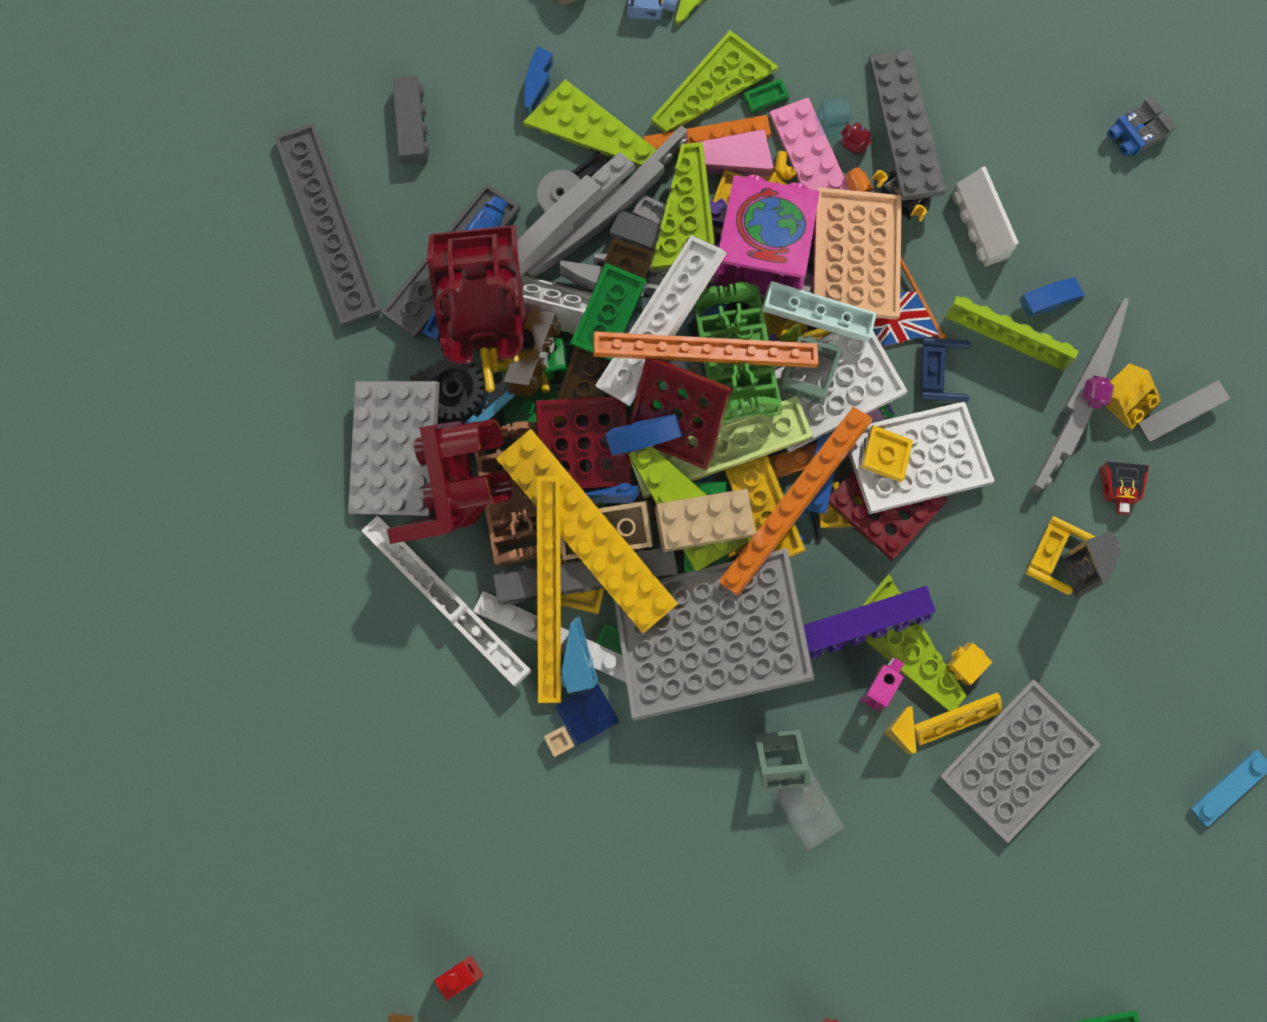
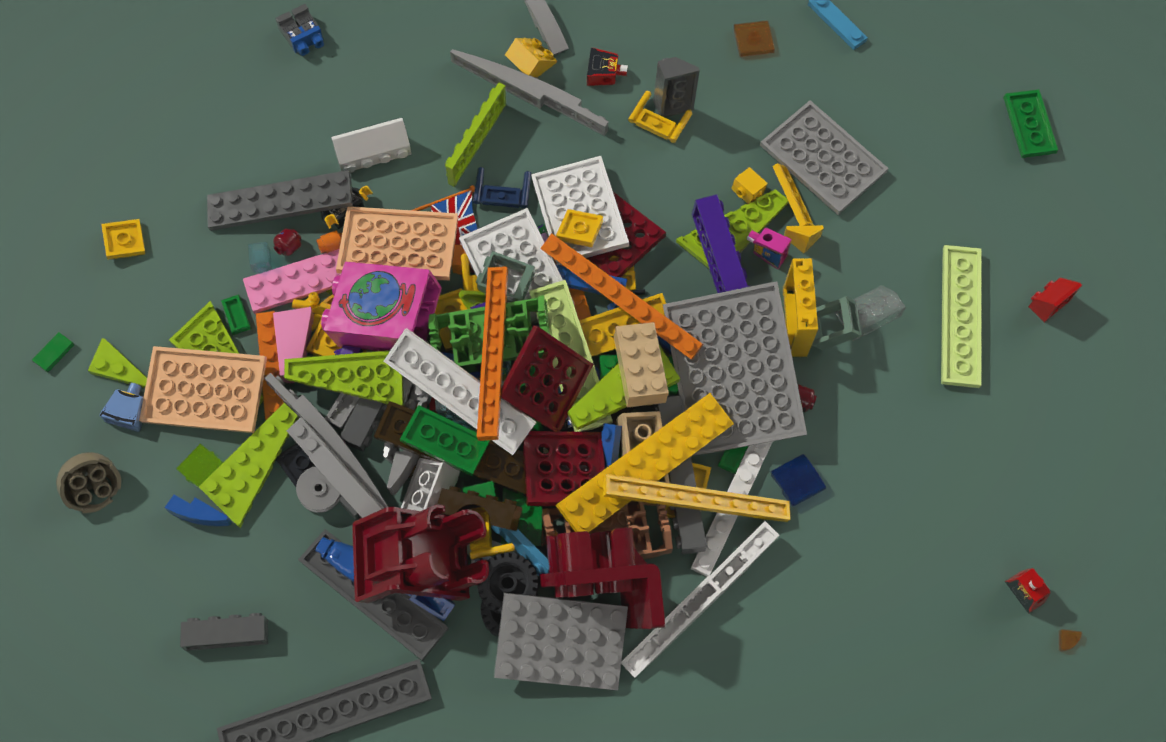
camera: 90 degrees left, 10 degrees down
(559, 741) = (822, 503): tan plate -> none
(578, 667) = (760, 483): dark azure slope -> none
(591, 78) = (199, 465): none -> clear neon green piece
(643, 434) = (562, 412): blue slope -> none
(671, 70) = (203, 389): none -> light nougat plate
(687, 722) = (807, 398): none -> dark red head
(795, 714) = (800, 306): none -> yellow window
(807, 926) = (961, 316): none -> yellowish green plate
(819, 311) = (455, 268): light aqua piece -> none
(1051, 297) = (444, 106): blue slope -> none
(1098, 392) = (531, 74): magenta head -> none
(1191, 675) = (753, 38): none -> clear orange plate

